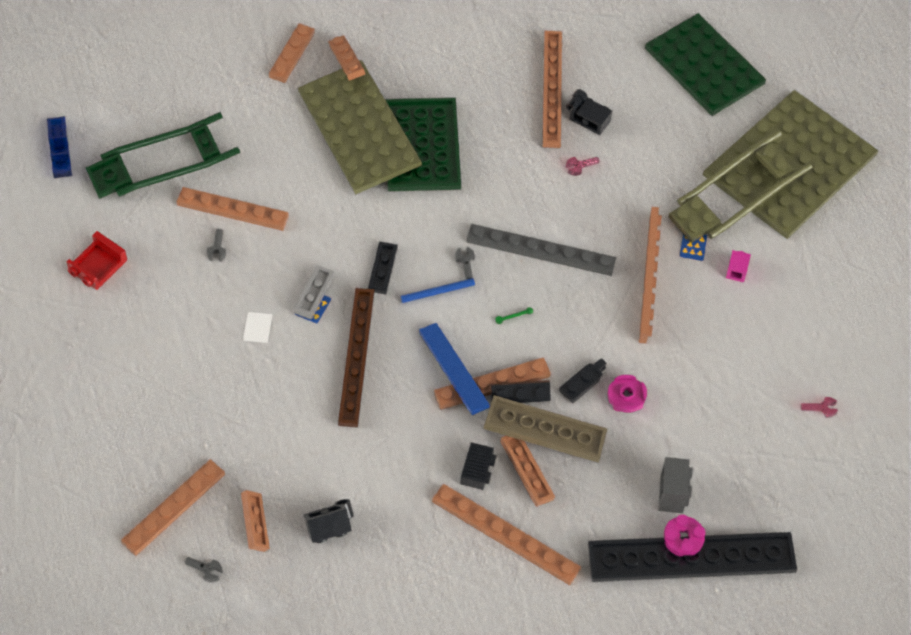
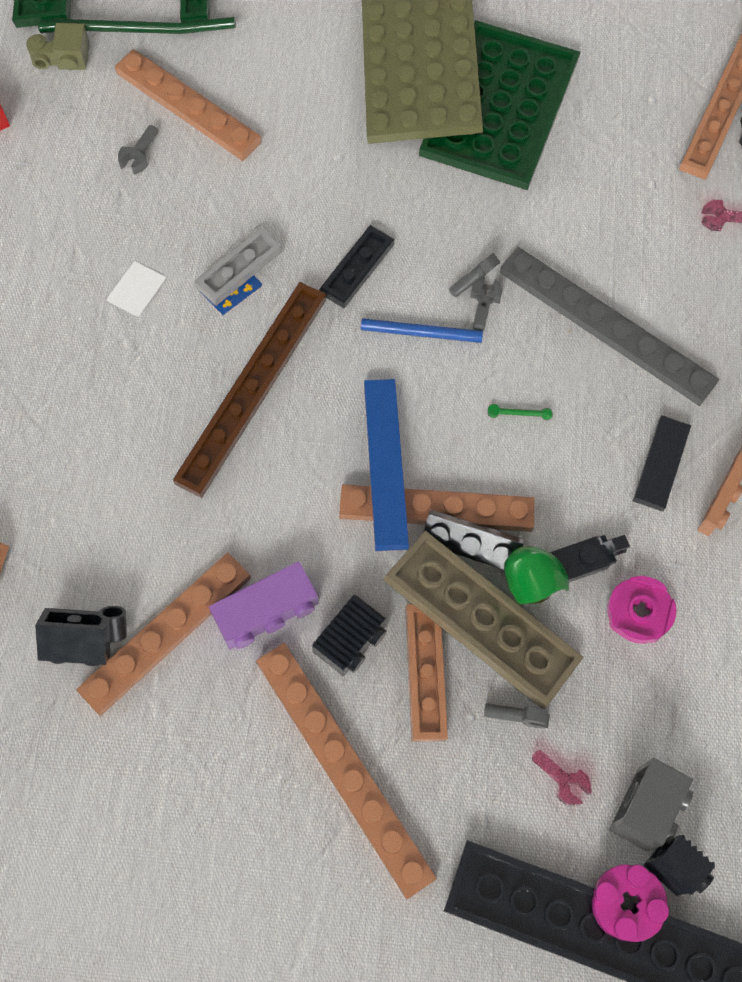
camera: 25 degrees right, 10 degrees up
(141, 203) = (66, 50): none -> olive brick
(373, 505) = (162, 635): none -> nougat plate
(423, 468) = (264, 606): none -> medium lavender brick
(455, 246) = (477, 273): none -> dark grey bar
(563, 395) = (534, 575): none -> green piece
(594, 468) = (530, 715): none -> dark grey bar
(604, 314) = (662, 463): none -> black tile
(625, 494) = (563, 778): none -> clear pink bar
(702, 506) = (681, 867): none -> black brick

